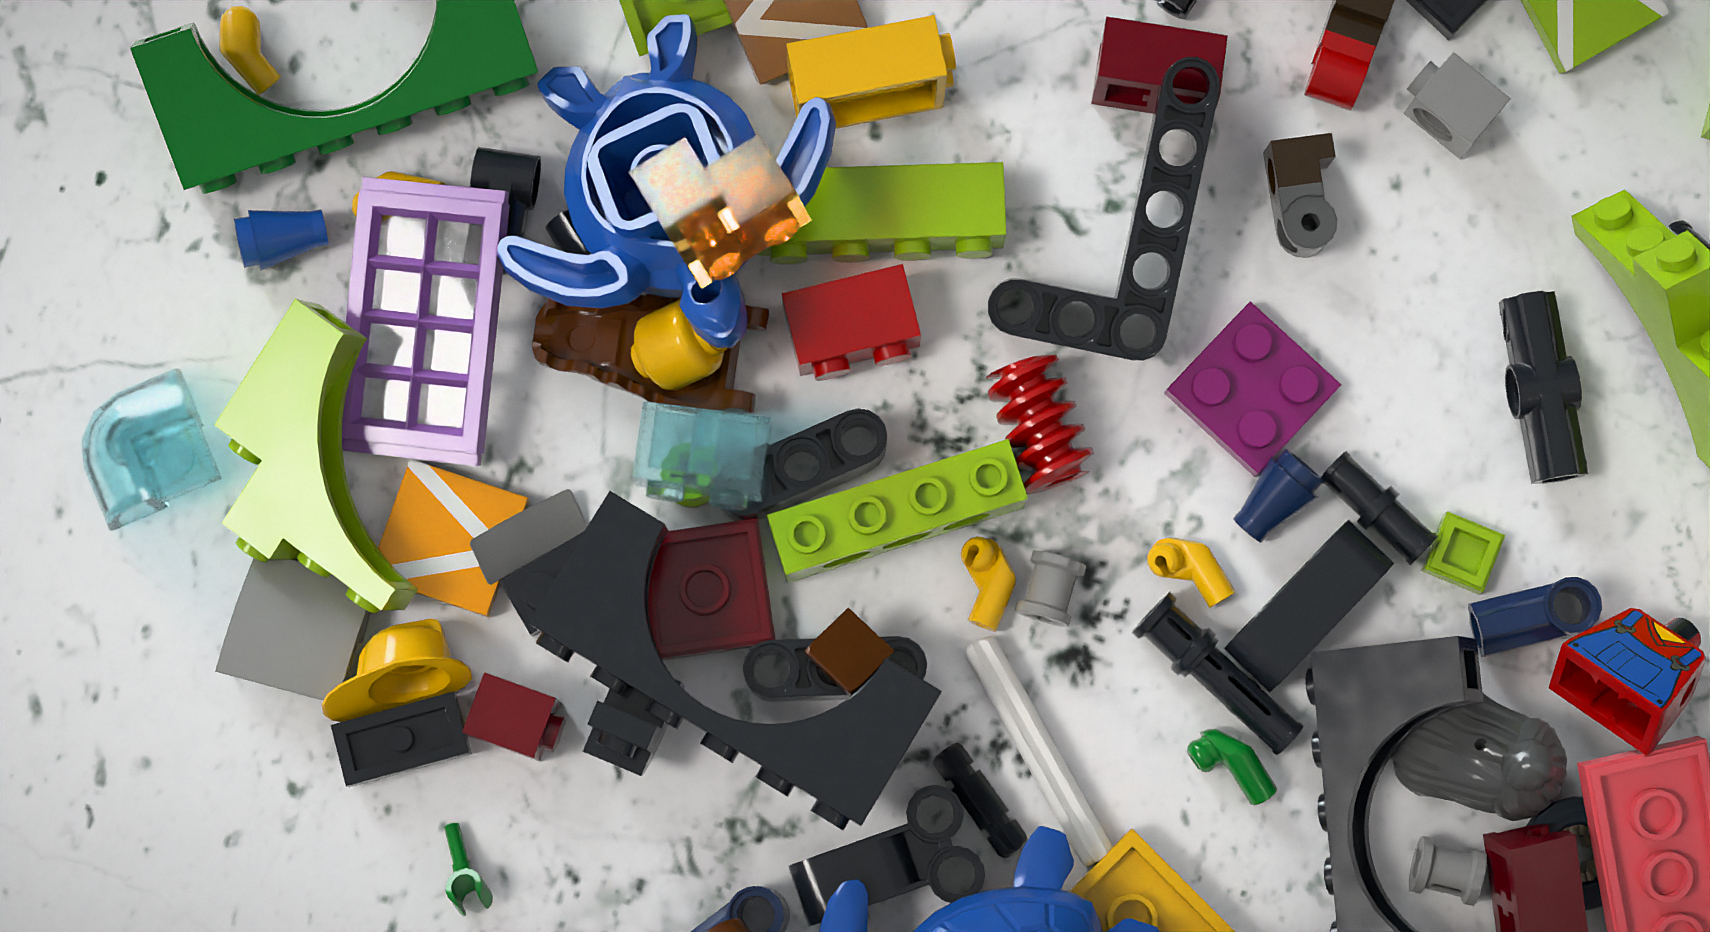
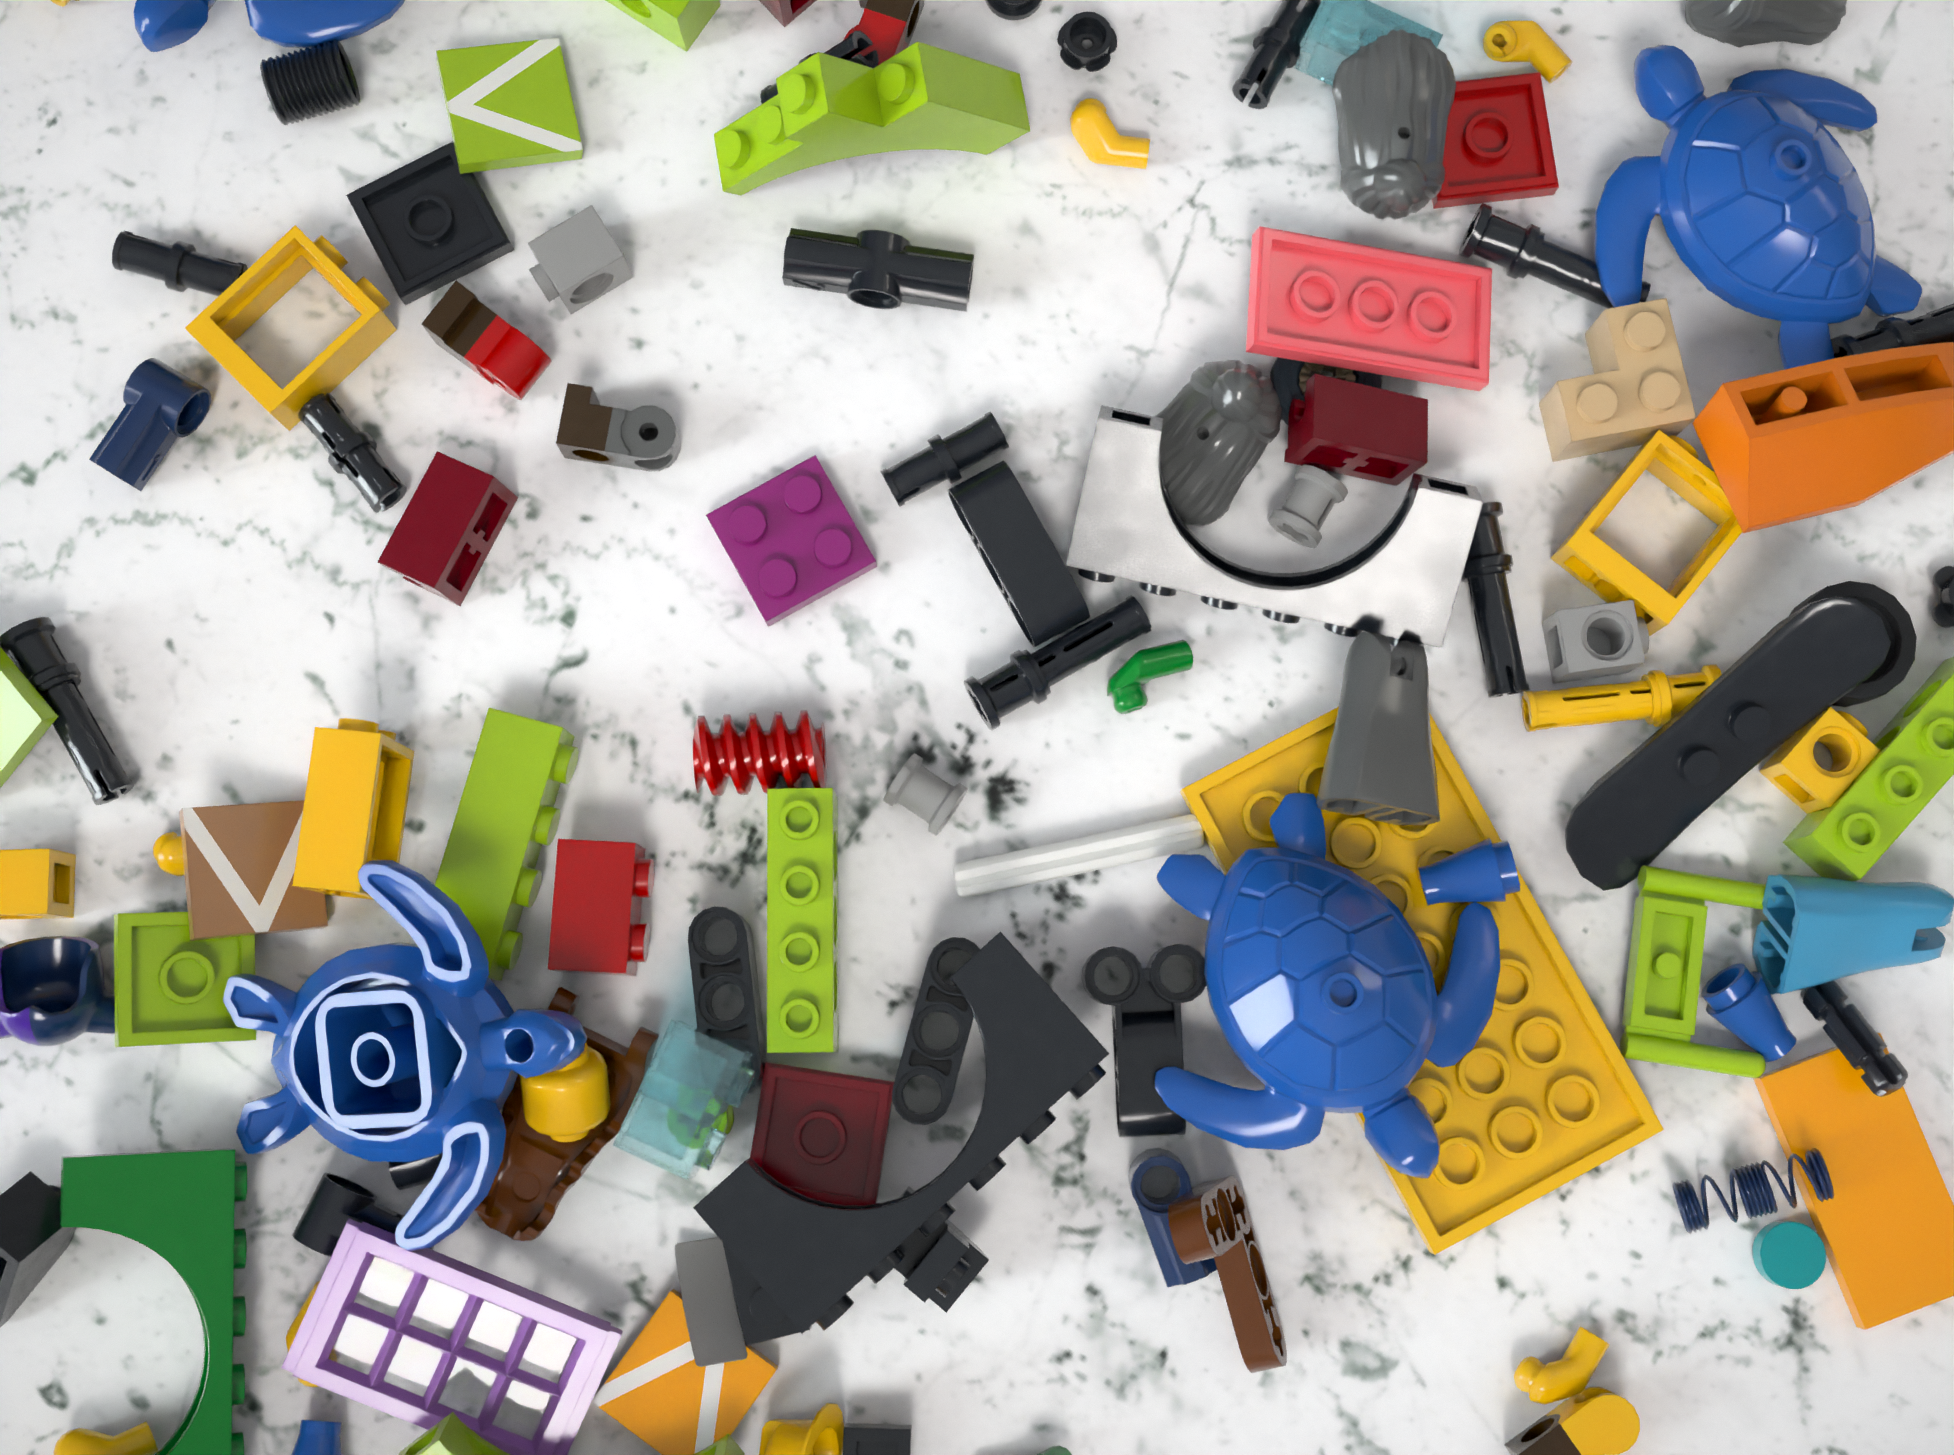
camera: 70 degrees left, 0 degrees up
(514, 717) = (890, 1371): dark red brick -> none
(720, 210) = (441, 1005): clear orange brick -> none
(848, 652) = (930, 1011): reddish brown slope -> none
(980, 800) = (1109, 927): black axle -> none
(993, 579) = (898, 847): yellow arm -> none
(1142, 237) = (607, 595): black beam -> none
(1190, 562) = (941, 651): yellow arm -> none
(1278, 495) = (903, 548): dark blue cone -> none
(1463, 553) = (1012, 395): lime tile -> none
(1530, 617) = (1092, 351): dark blue piece -> none
(1631, 674) = (1177, 275): torso -> none

